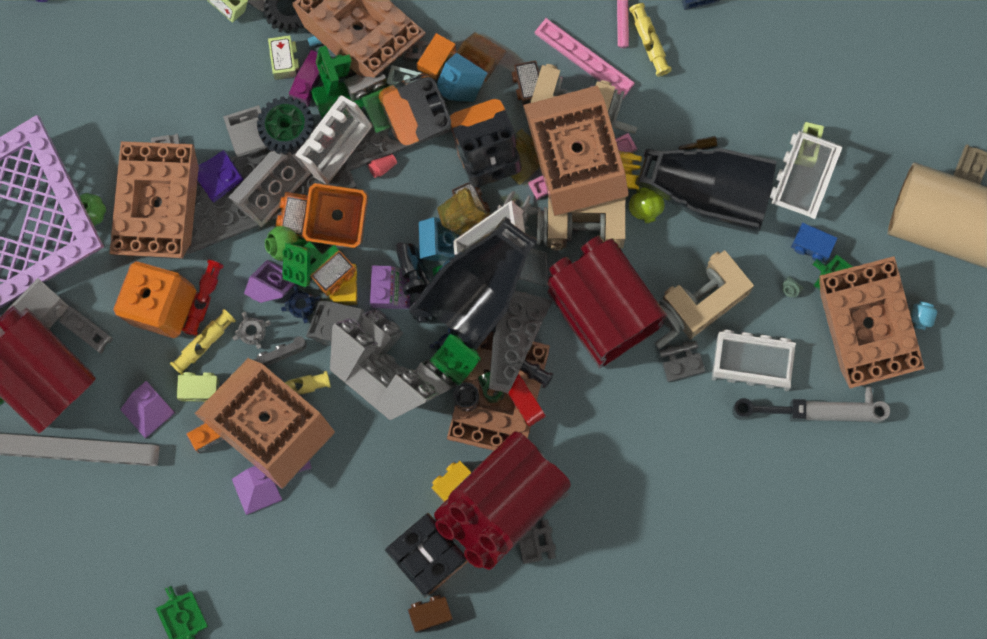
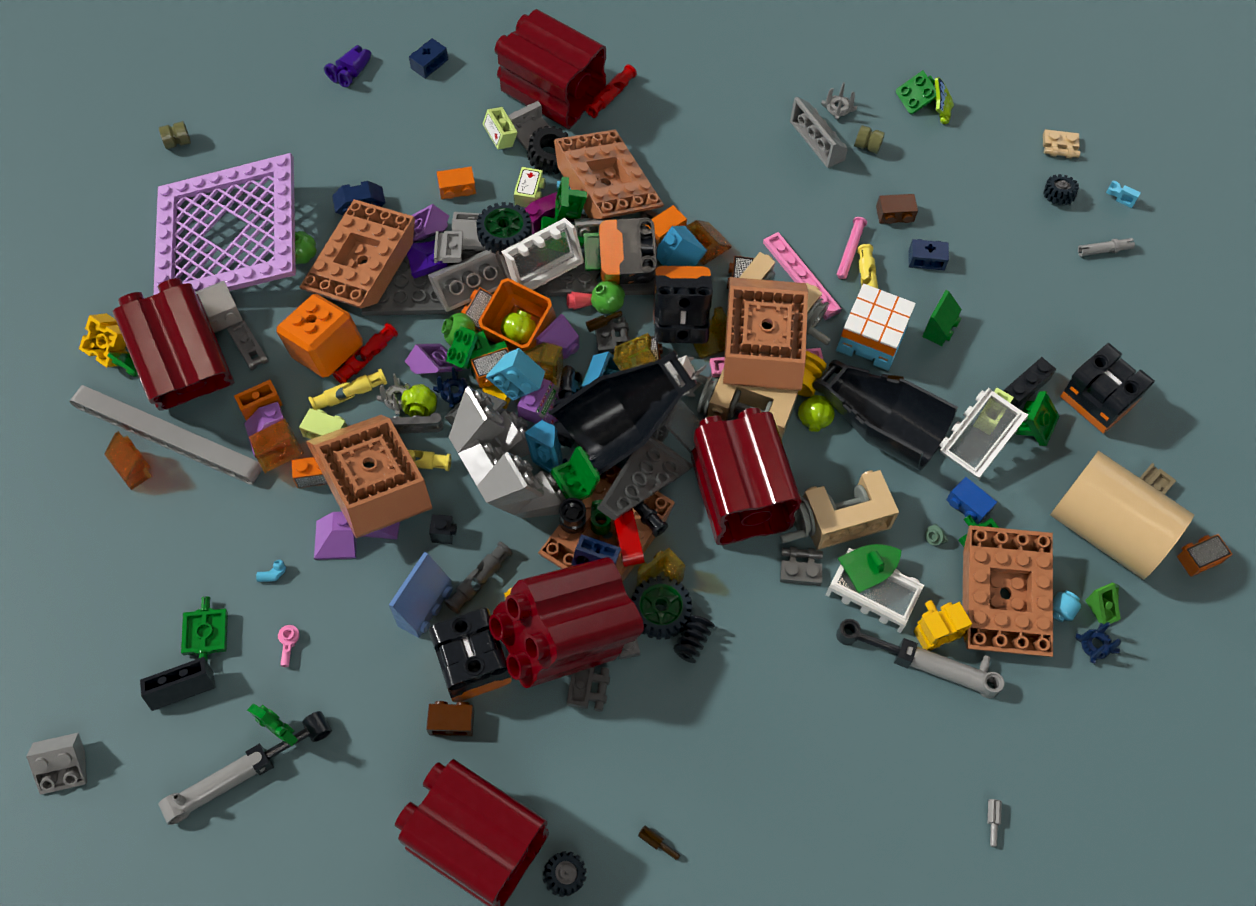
camera: 15 degrees right, 15 degrees down
(36, 491) = (127, 460): none -> clear orange slope
(125, 384) = (257, 397): none -> orange brick
(128, 129) = (366, 192): none -> dark blue brick
(164, 424) = (275, 445): none -> clear orange slope
(202, 134) = (428, 222): none -> medium lavender slope
(208, 78) = (456, 182): none -> orange brick
(217, 542) = (272, 575): none -> medium azure arm
(237, 161) = (448, 247): none -> light grey plate
(257, 594) = (288, 637): none -> bright pink plate
(275, 329) = (419, 401): none -> lime plant
(339, 221) = (518, 326): none -> lime plant
(351, 446) = (442, 529): none -> black brick
(360, 276) = (516, 374): none -> medium azure slope
(362, 518) = (420, 596): none -> medium blue slope
(375, 250) = (549, 358): none -> clear yellow slope
(381, 219) = (560, 334): none -> medium lavender slope
(402, 475) = (480, 575): none -> dark grey piece
(409, 157) = (607, 297): none -> bright green plant
(413, 183) = (601, 321): none -> dark brown axle
(413, 335) = (544, 445): none -> dark azure slope
(421, 194) = (606, 335): none -> dark grey plate
(500, 426) = (591, 549): none -> dark blue brick
(570, 408) = (663, 561): none -> clear yellow bracket
(575, 432) = (666, 593): none -> wheel
(610, 465) = (692, 637): none -> black piece
(675, 99) = (876, 326): none -> piece
(735, 62) = (943, 320): none -> green slope
(743, 341) = (870, 565): none -> green shield
(821, 374) = (942, 626): none -> yellow brick
(833, 101) = (1030, 381): none -> black brick
(853, 135) = (1040, 420): none -> green bracket
(906, 86) = (1106, 388): none -> black piece
(913, 527) = (994, 819): none -> light grey axle
(958, 299) = (1105, 603): none -> bright green slope
(969, 339) = (1107, 647): none -> dark blue piece

